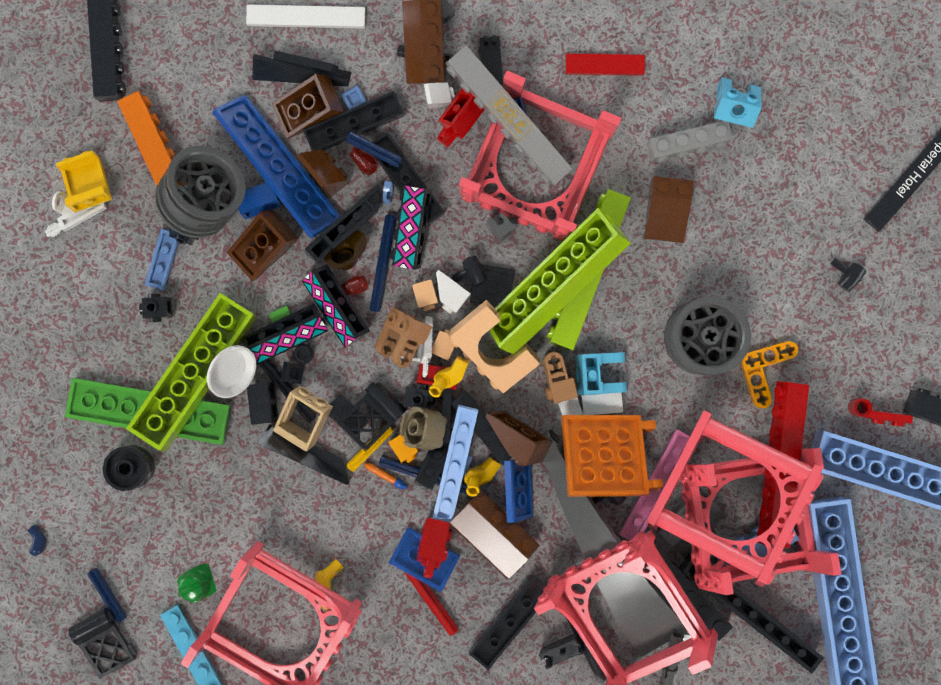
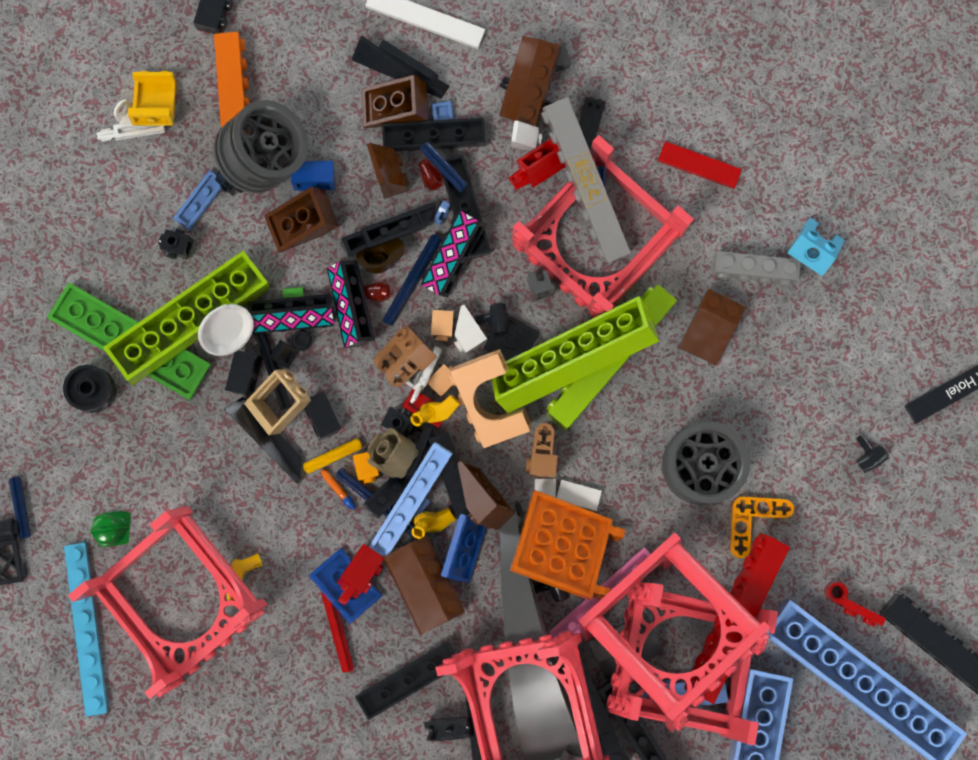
camera: 20 degrees right, 5 degrees down
(276, 165) = (344, 149): blue plate -> none
(381, 402) = (359, 413): black piece -> none
(588, 373) = (575, 460): medium azure brick -> none

